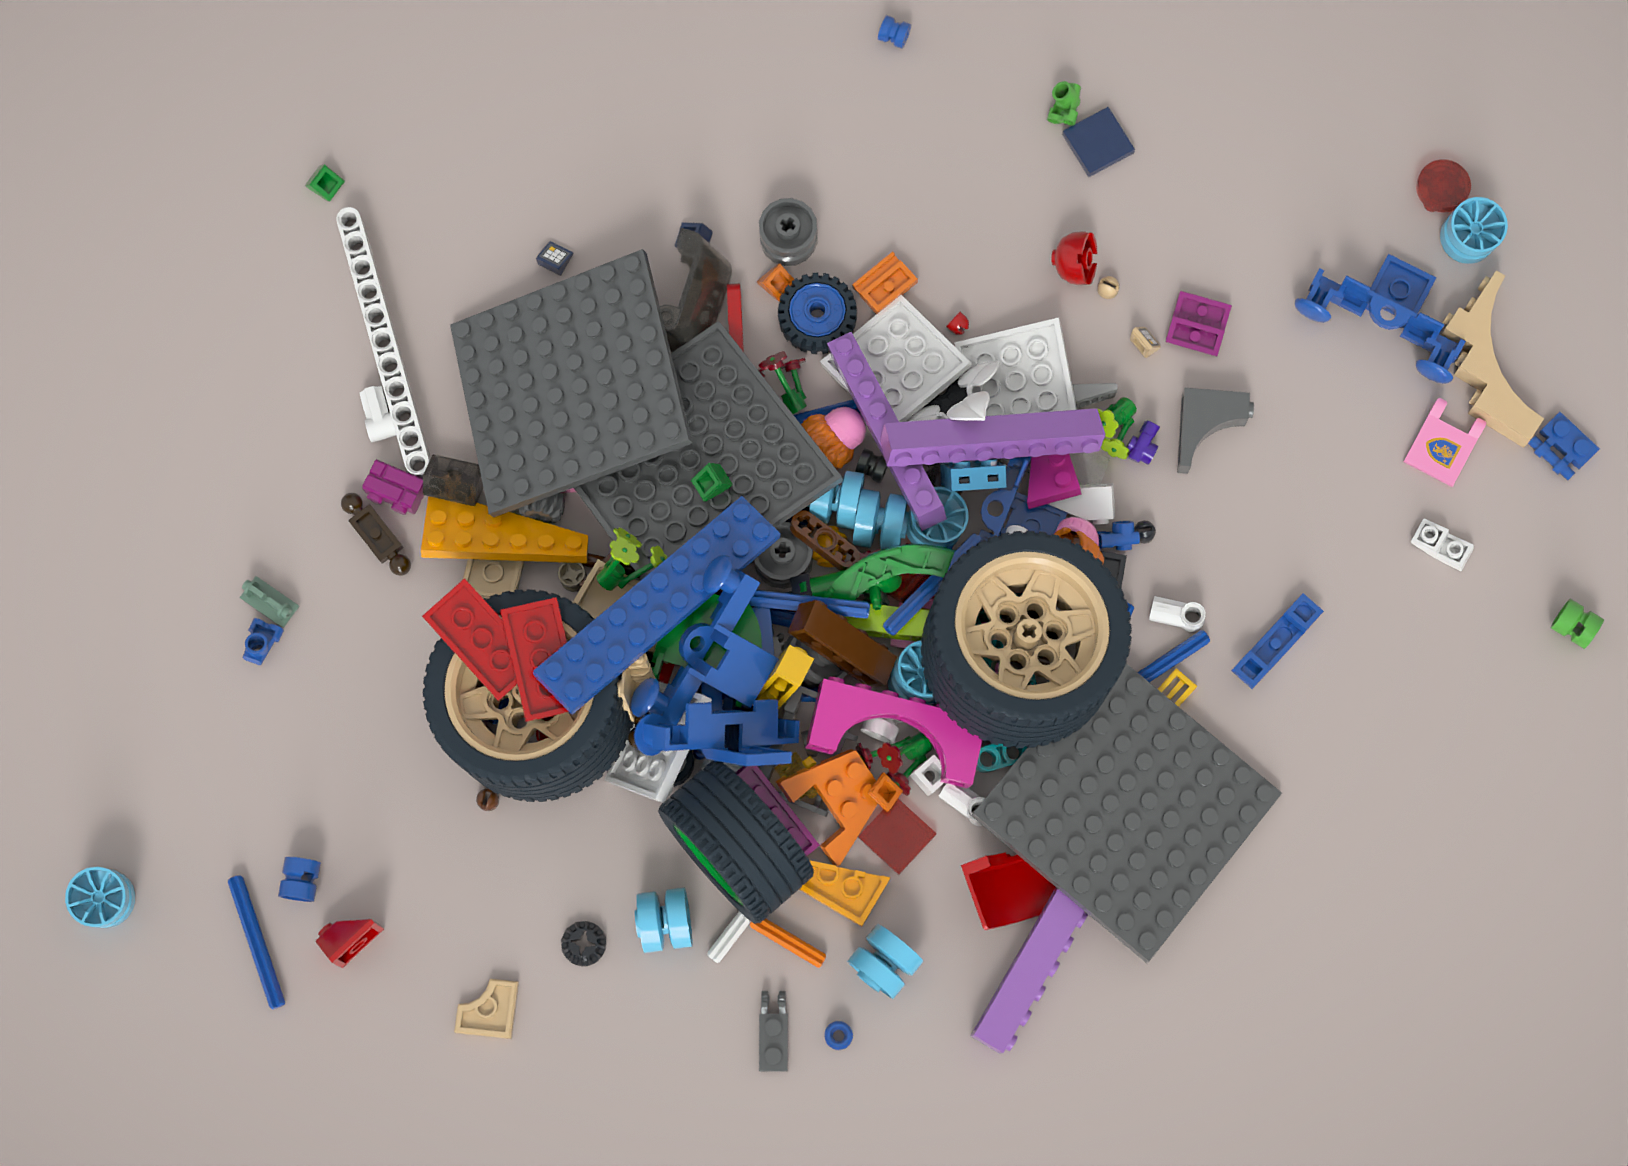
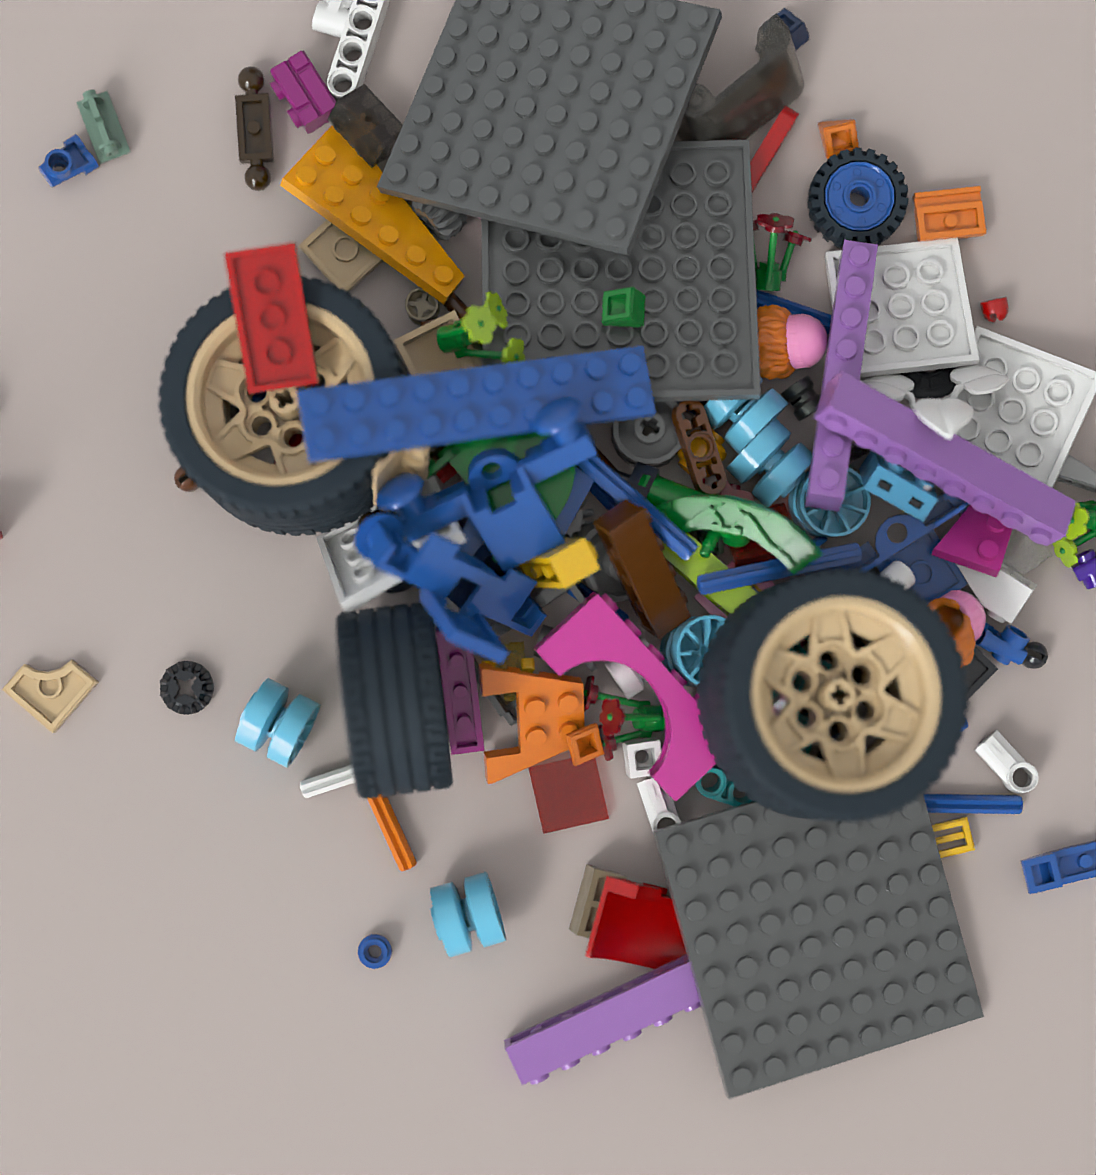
camera: 30 degrees right, 10 degrees up
(532, 636) = (323, 354): red plate -> none
(773, 1036) = (310, 907): dark grey hinge -> none
(788, 231) = (886, 91): dark grey wheel -> none
(845, 890) = (478, 812): light orange wing -> none
(961, 898) = (589, 899): none -> dark tan hinge

